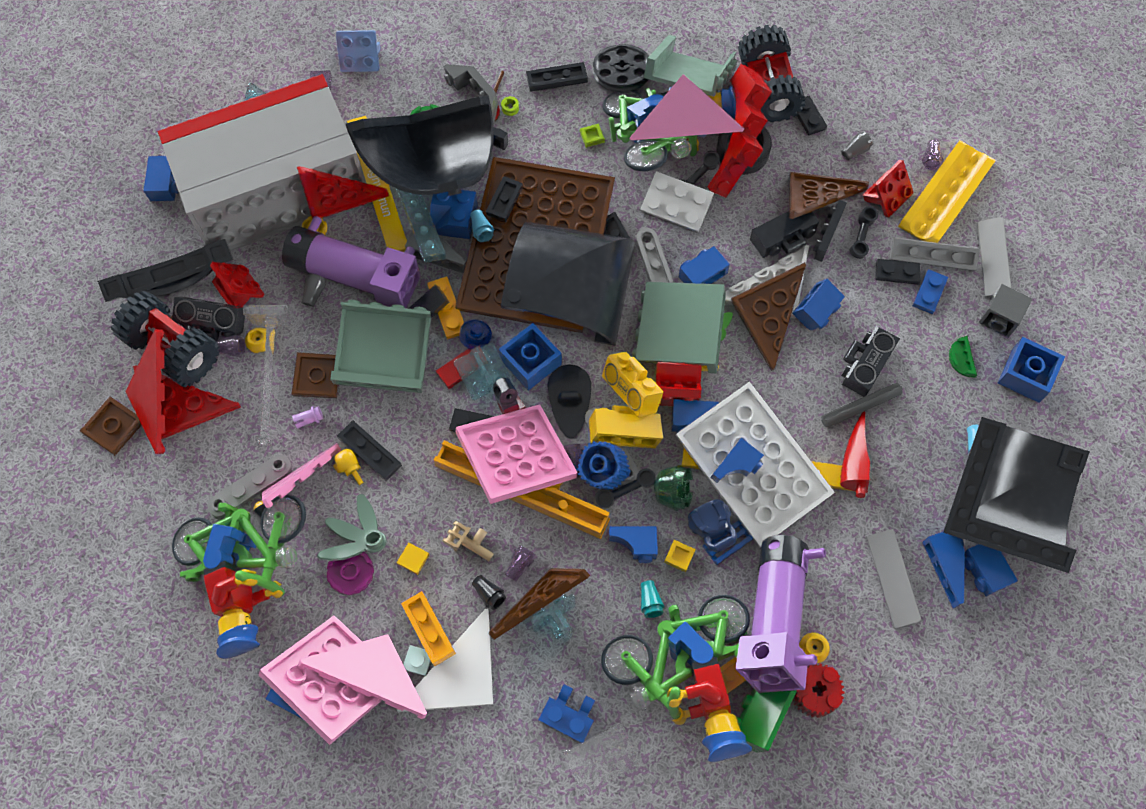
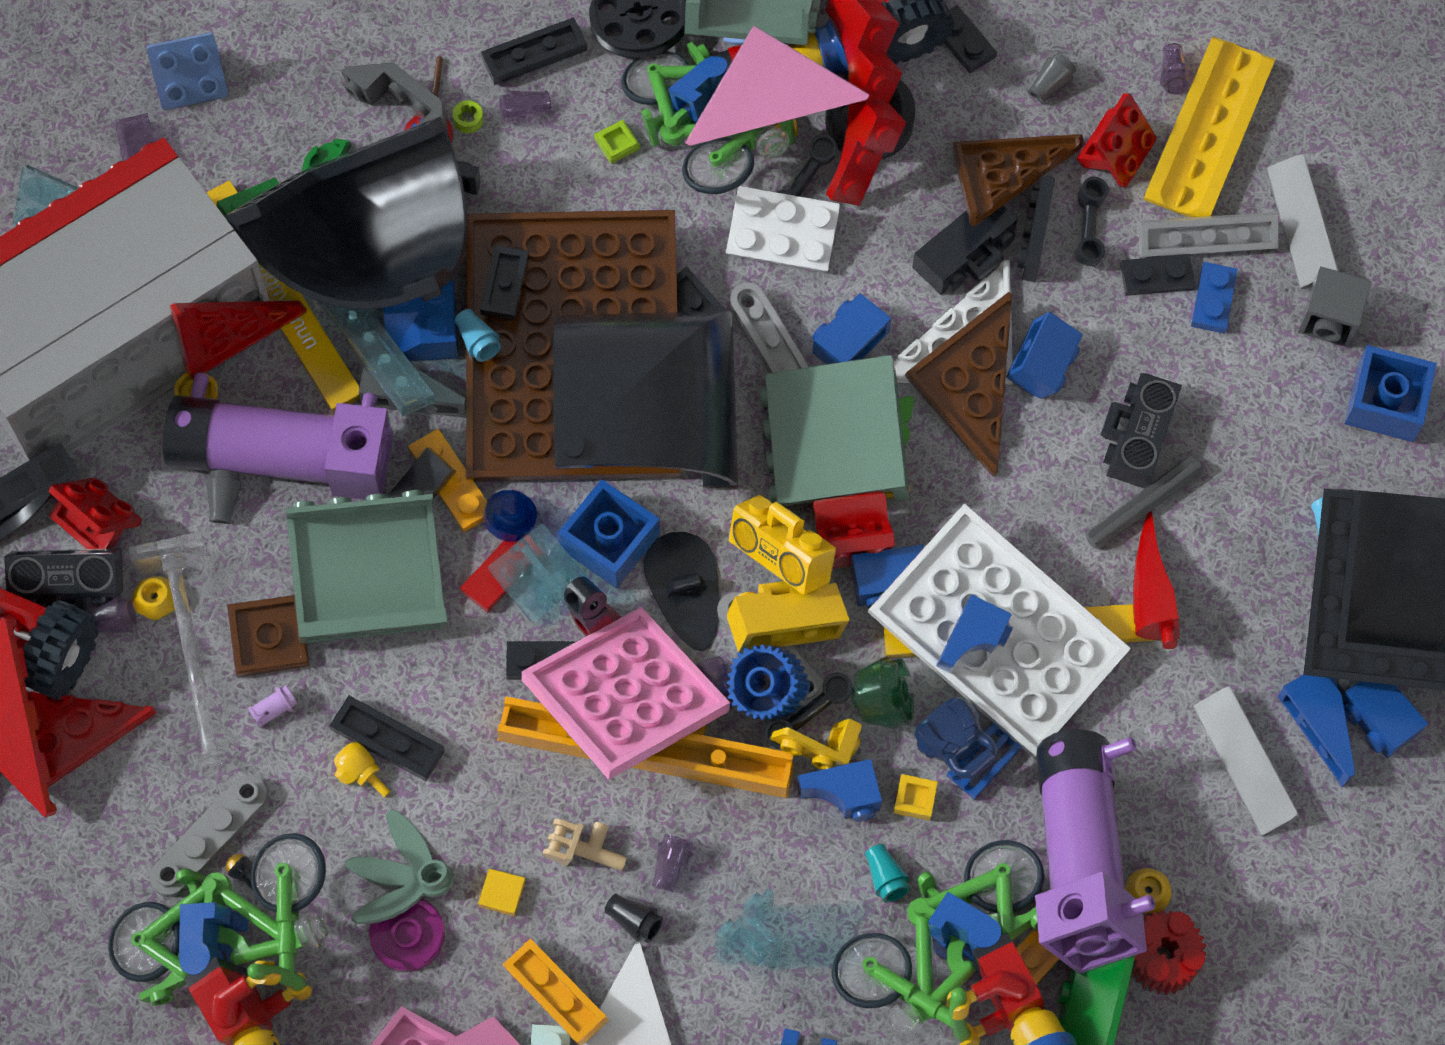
camera: 15 degrees left, 0 degrees up
(287, 484) = (276, 817): bright pink tile -> none
(542, 105) = (521, 105): none -> clear purple cone
(546, 590) = (722, 896): reddish brown tile -> none
(641, 513) = (839, 749): none -> yellow bracket
(961, 357) = (1283, 395): green tile -> none

